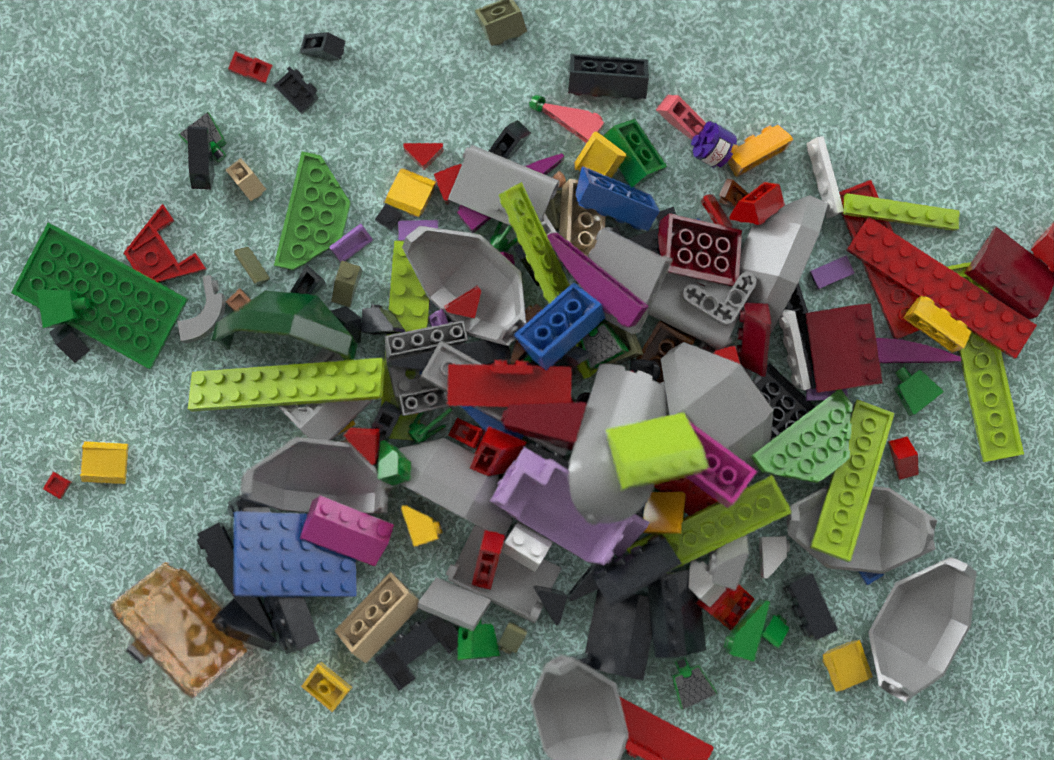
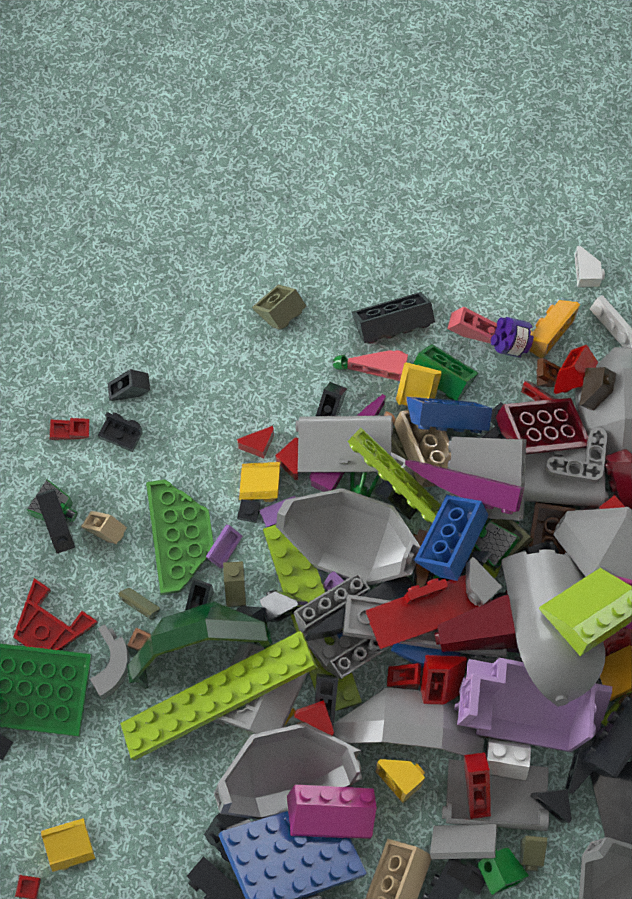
camera: 15 degrees left, 15 degrees down
(393, 465) = (352, 728): green slope -> none
(420, 432) = (361, 691): green plant -> none
(466, 304) = (354, 556): red slope -> none
(565, 381) = (479, 583): none -> light grey slope
(767, 232) = (596, 386): none -> dark brown slope
(823, 102) = (587, 269): none -> white slope

